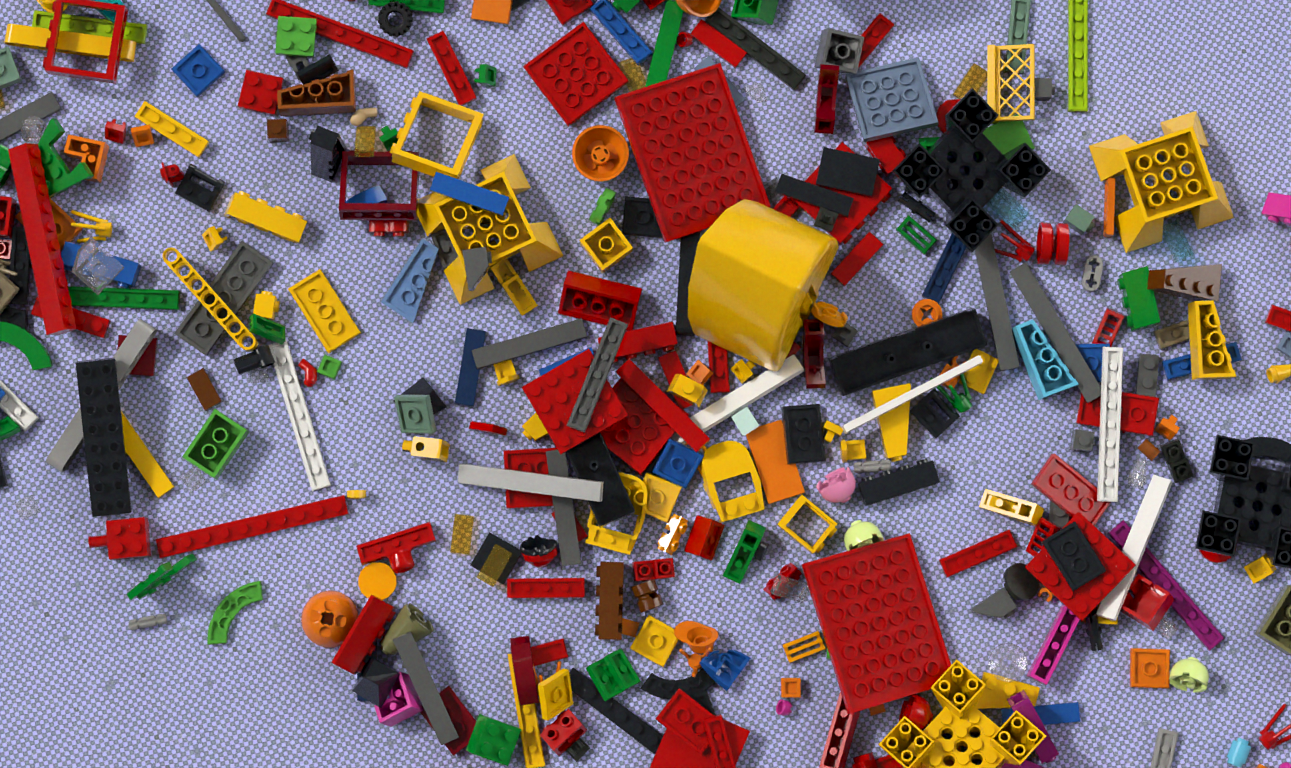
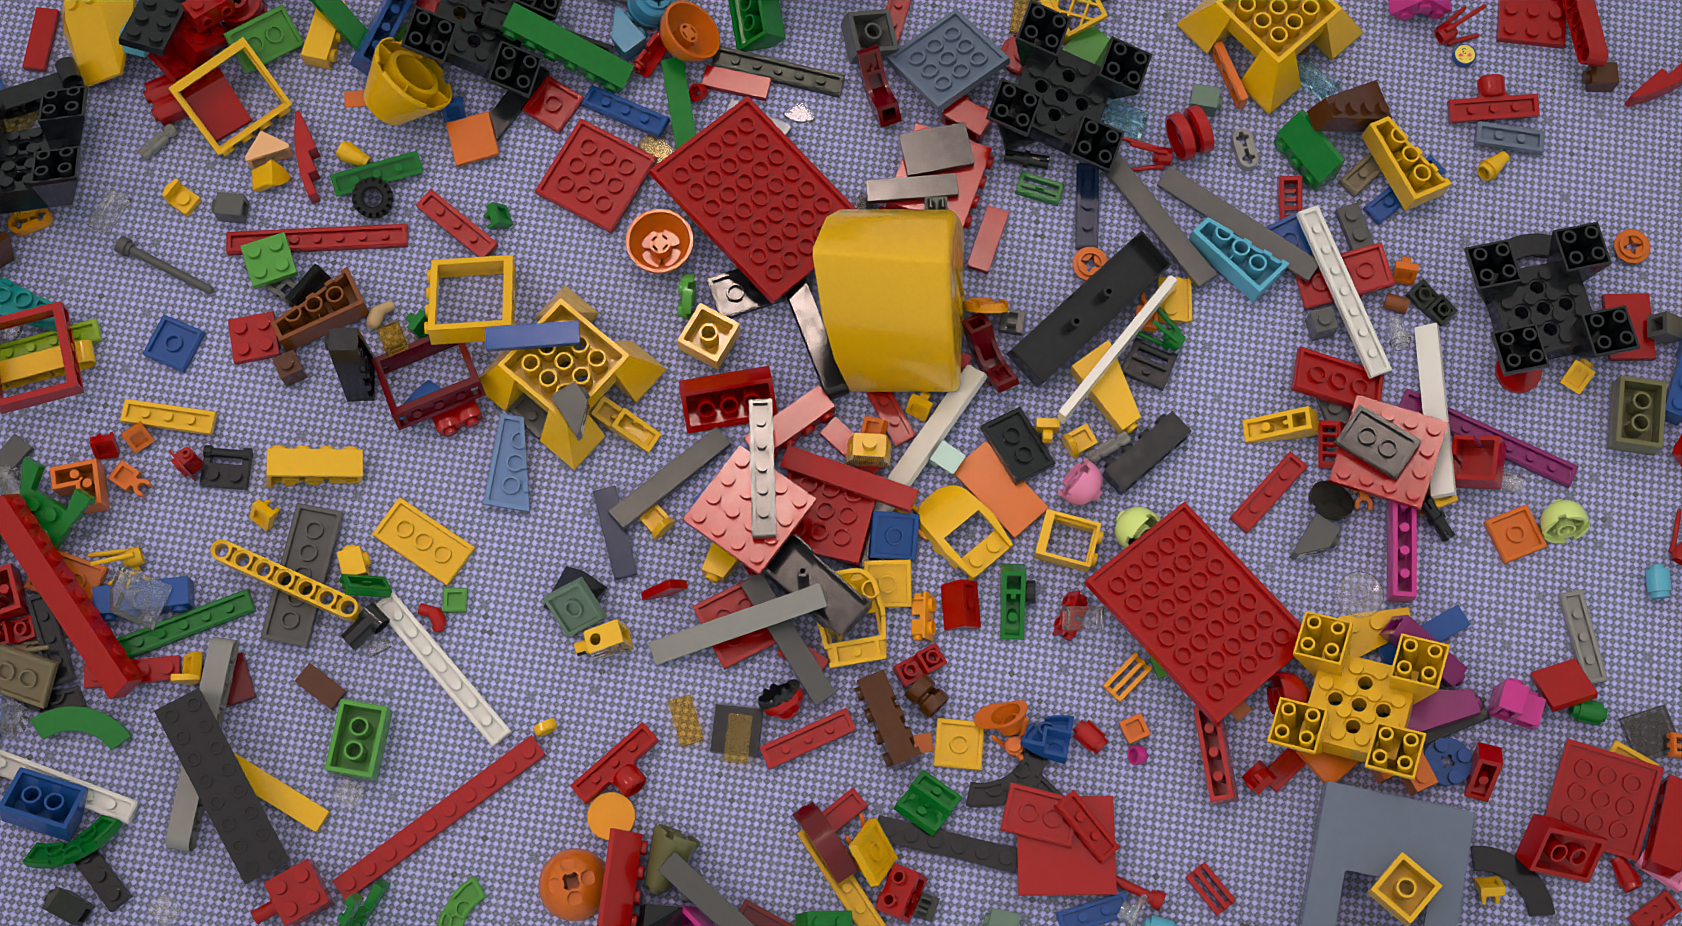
camera: 20 degrees left, 10 degrees down
(113, 335) = (191, 670): none -> yellow tile
(122, 164) = (127, 477): none -> orange plate
(754, 678) = (1090, 736): none -> red brick

